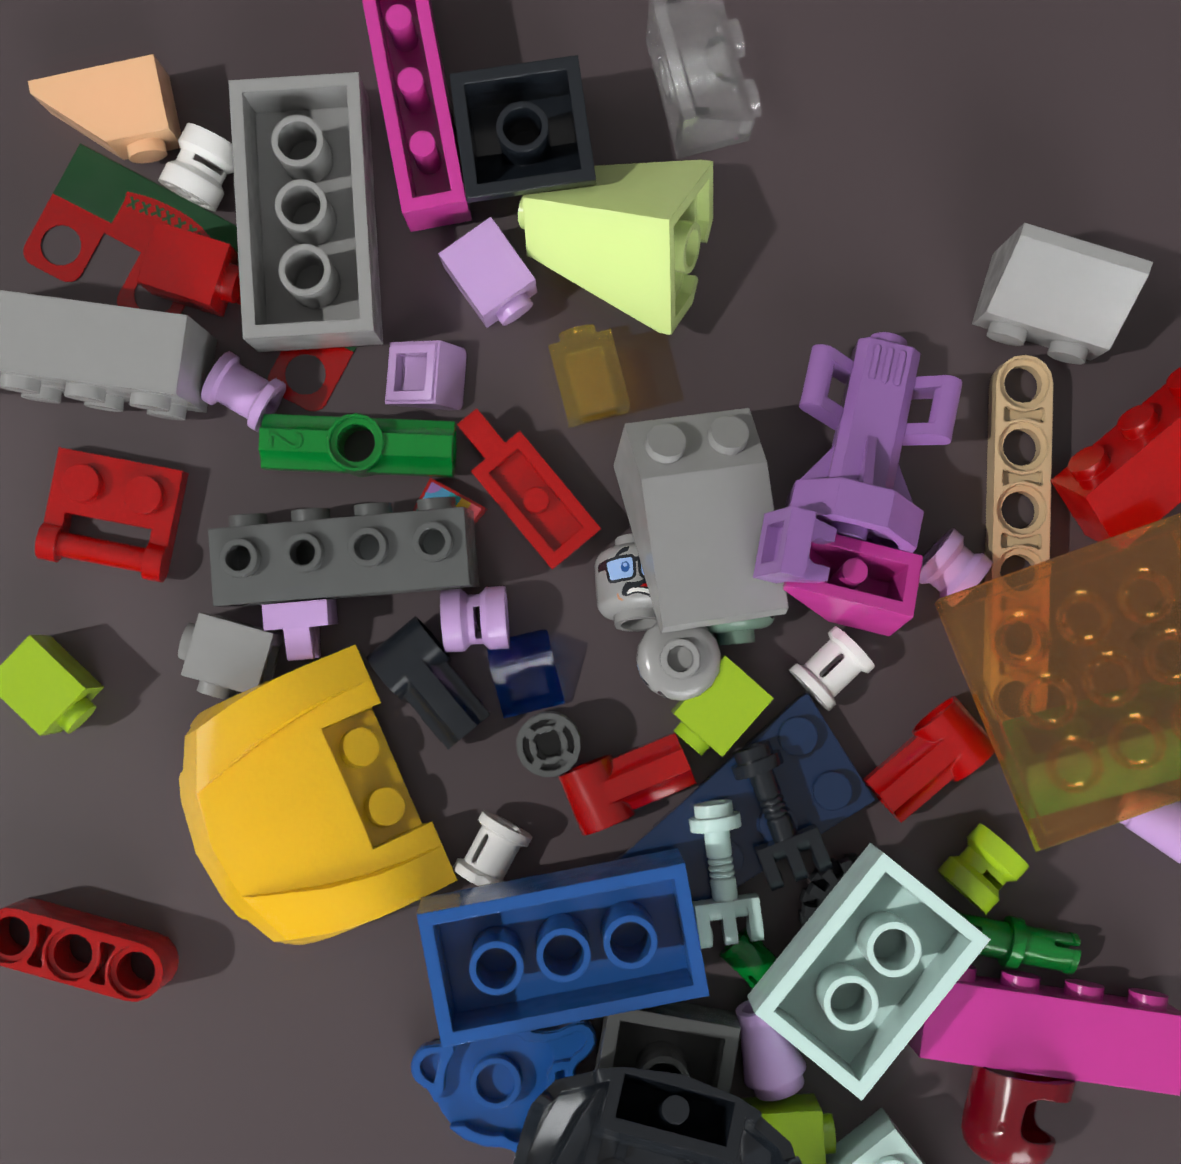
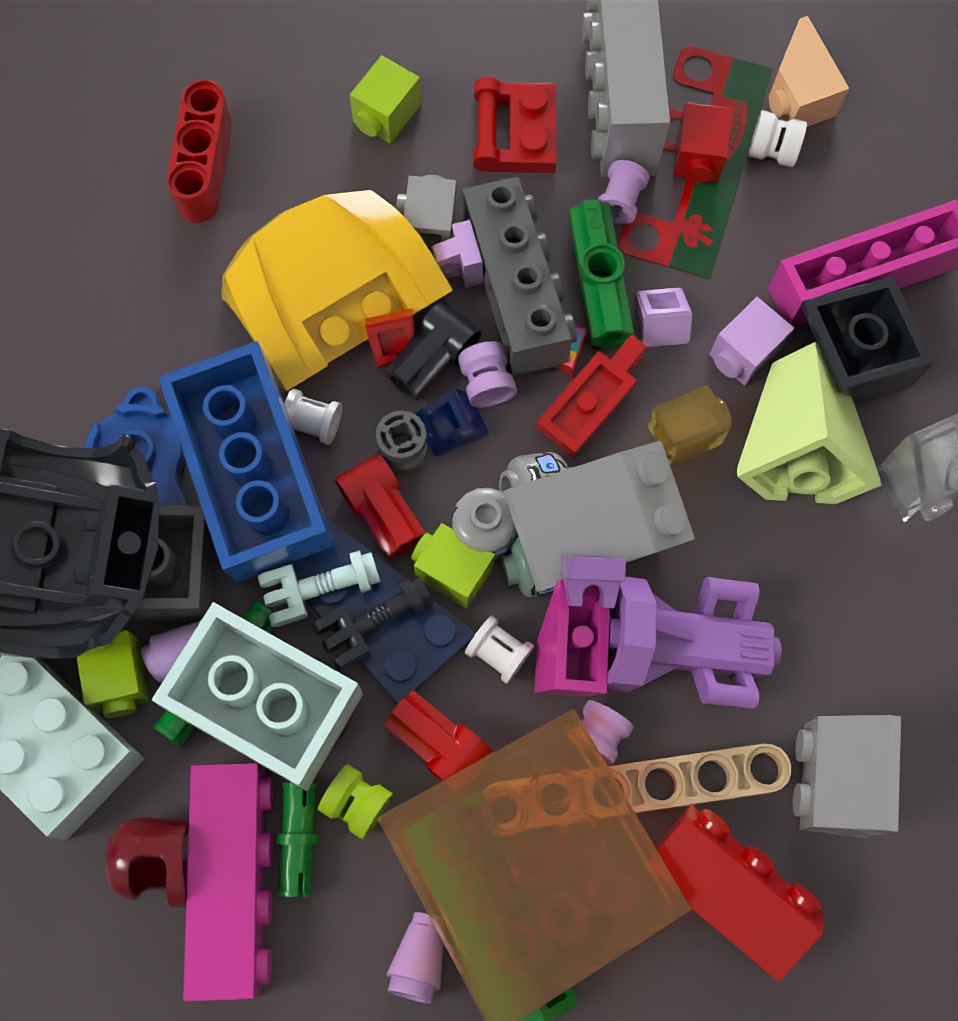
camera: 75 degrees right, 15 degrees down
(305, 212) = (761, 206): light grey brick -> none
(400, 736) = (389, 335): none -> red tile

